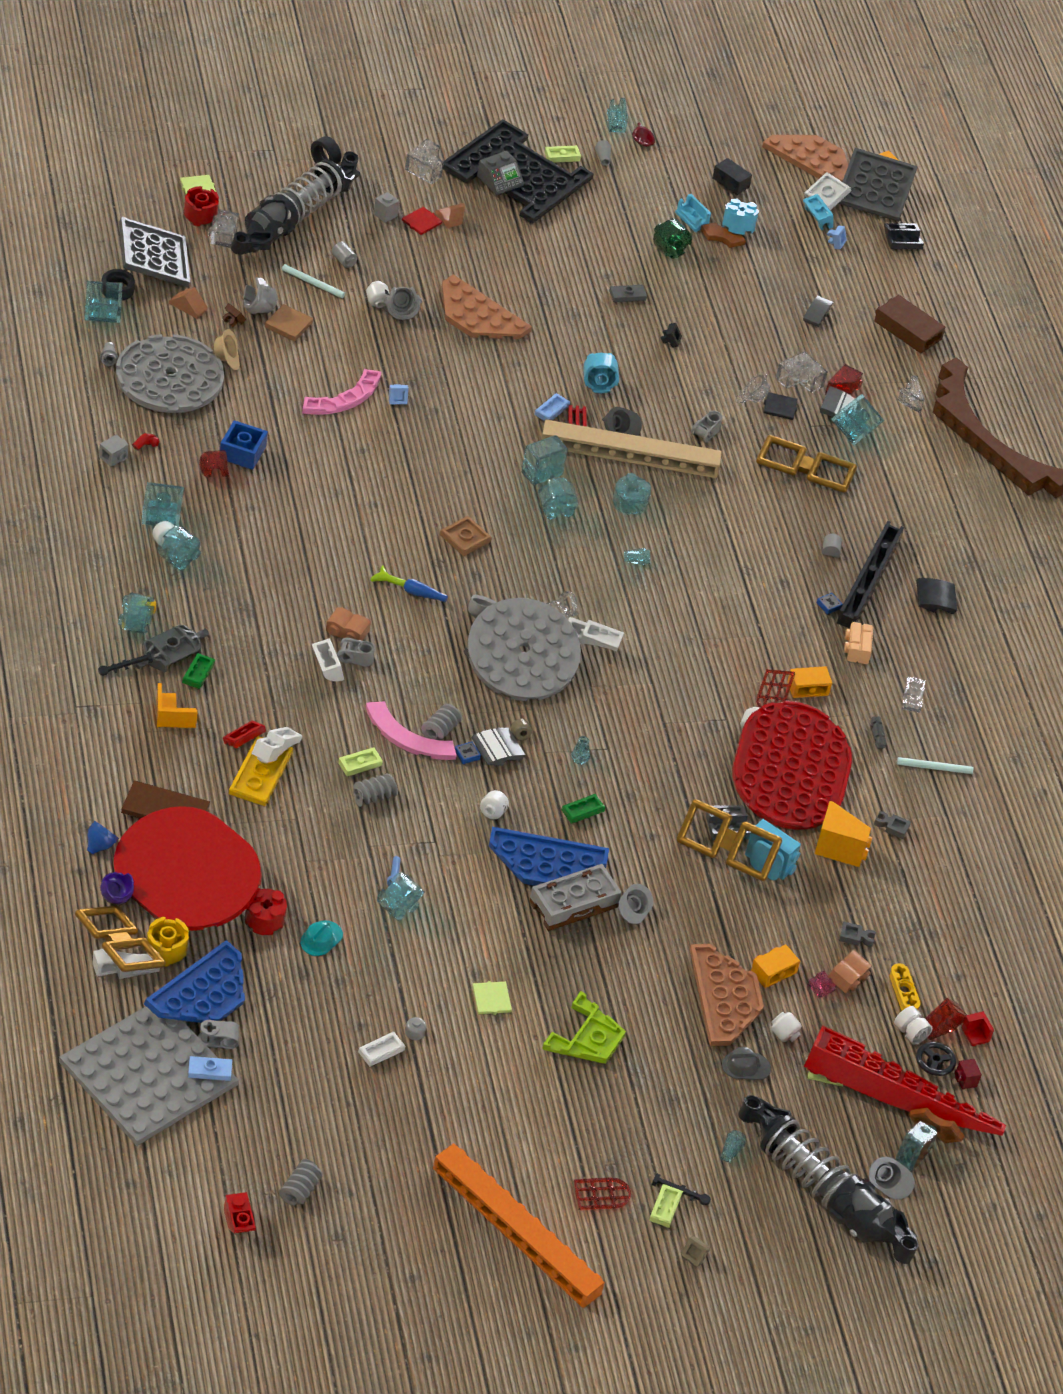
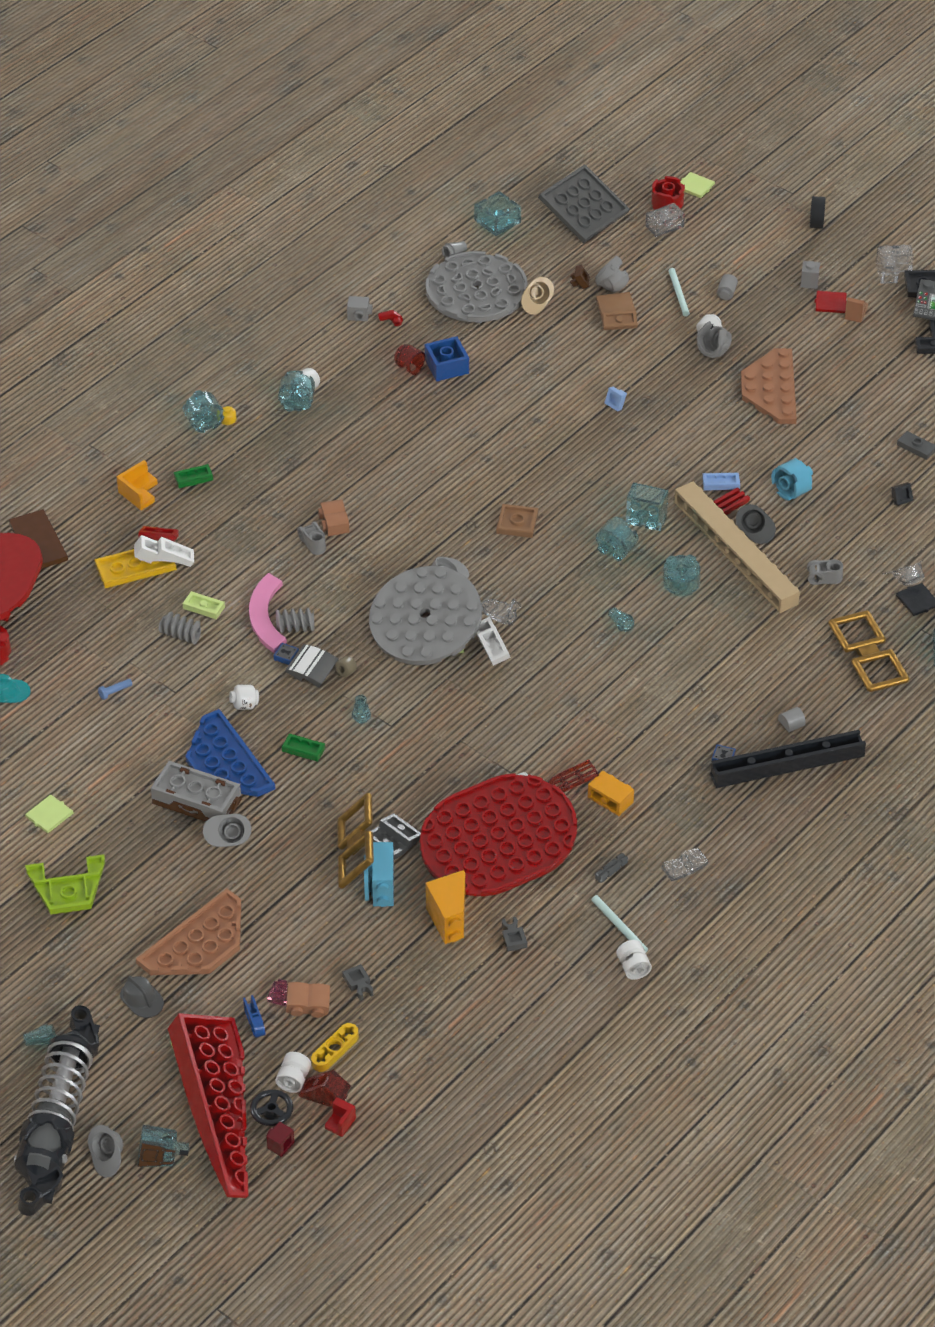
camera: 60 degrees right, 0 degrees up
(103, 670) = (139, 435): black piece -> none
(121, 276) = (535, 204): black tyre -> none
(162, 503) = (331, 360): clear light blue brick -> none
(164, 654) = (213, 450): dark grey plate -> none
(189, 302) = (563, 252): nougat slope -> none
(283, 211) = (714, 230): piece -> none
(310, 331) = (619, 320): none -> medium nougat plate
(328, 660) = (283, 529): white brick -> none
(345, 400) = (580, 381): bright pink tile -> none
(400, 896) = (83, 700): clear light blue brick -> none
(411, 586) = (421, 524): blue piece -> none
(775, 965) = (263, 951): light orange brick -> none
(786, 1027) = (203, 995): white head -> none
(833, 1013) = (254, 1017): none -> blue piece
(859, 642) = (697, 796): light nougat brick -> none
(936, 594) = (822, 812): black slope -> none
(947, 1130) = (194, 1148): dark orange tile -> none
(975, 777) = (634, 959): none -> white wheel

